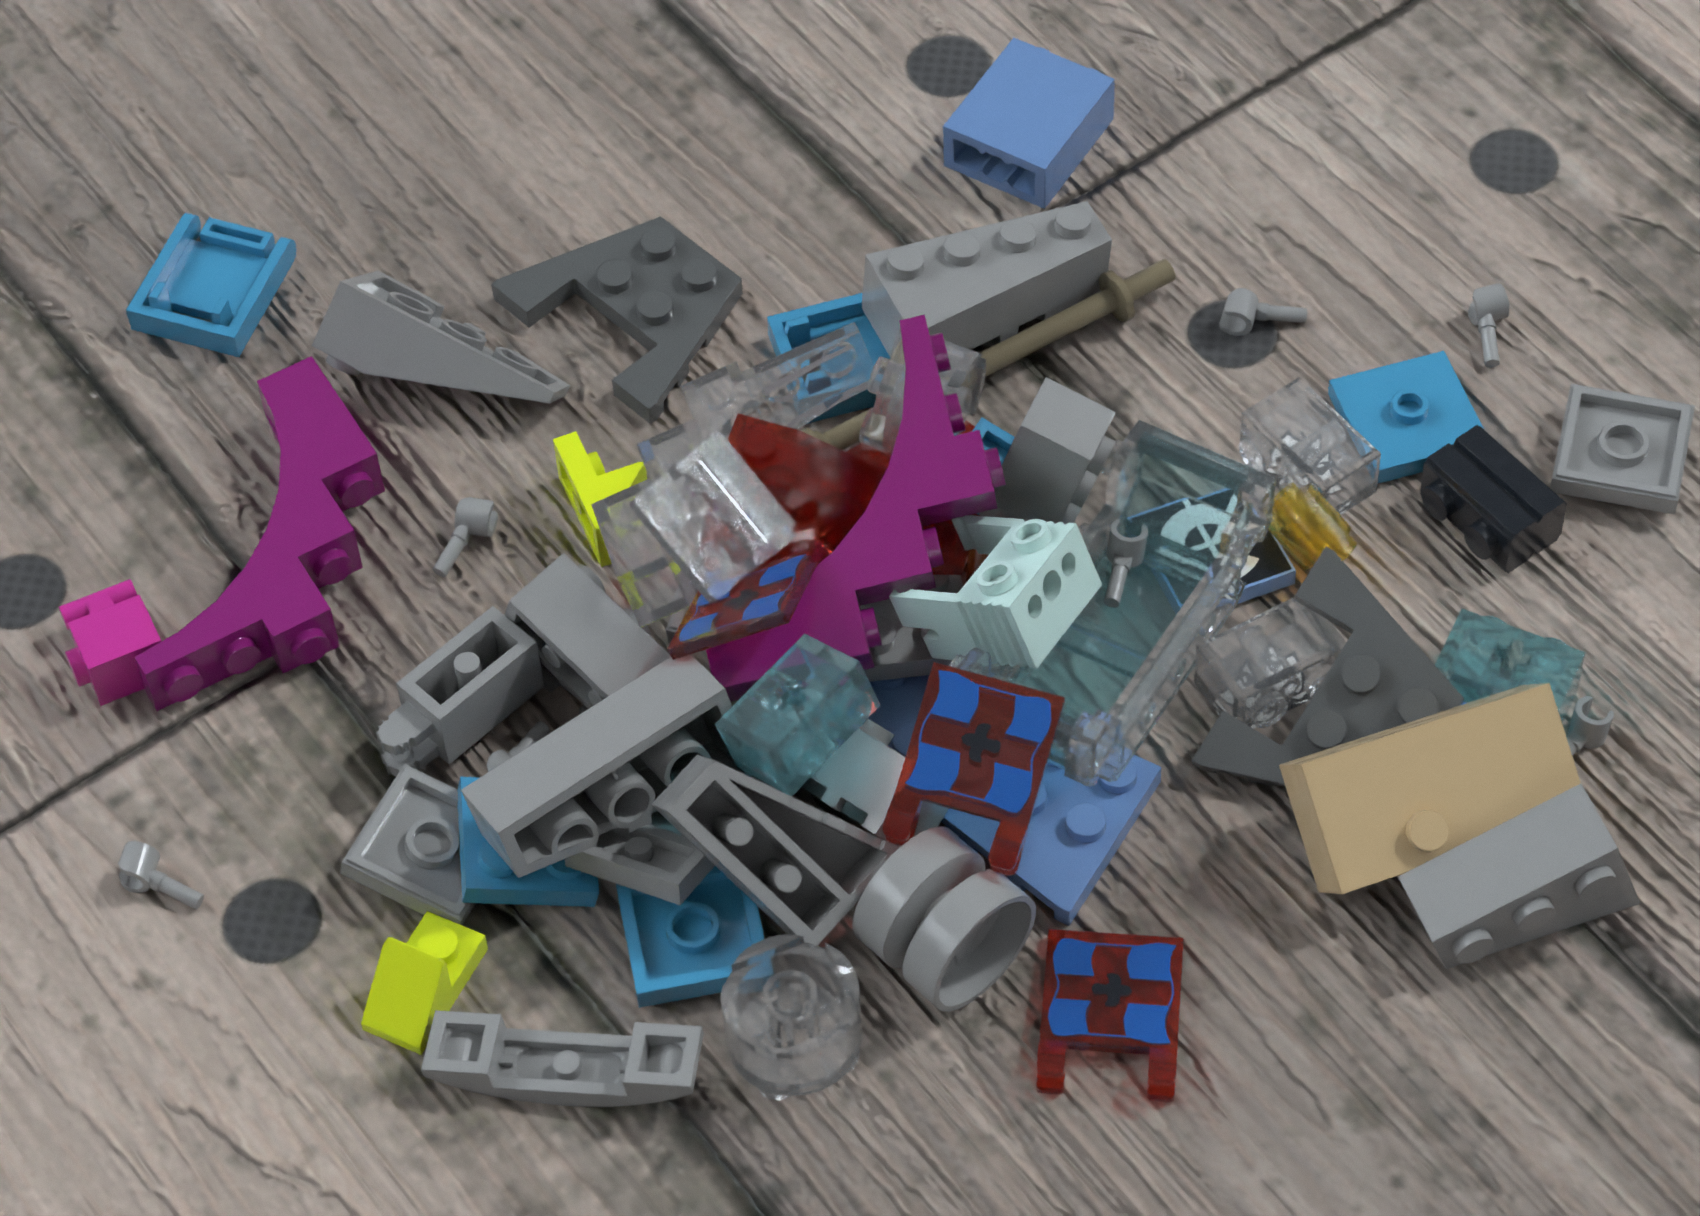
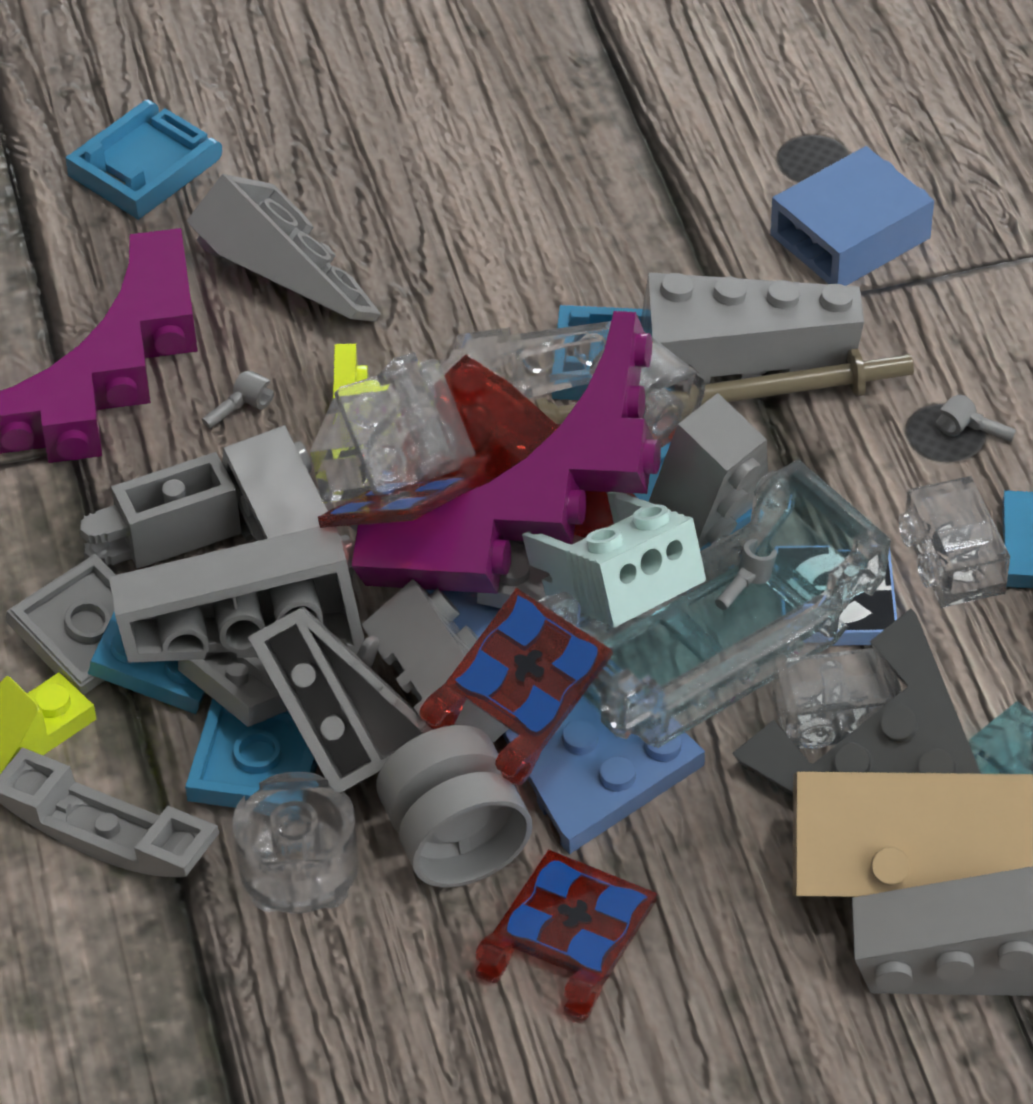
camera: 20 degrees right, 5 degrees down
(648, 285) = (482, 257): dark grey wing -> none
(798, 714) = (400, 601): clear light blue brick -> none
(1307, 523) = (926, 593): clear yellow brick -> none

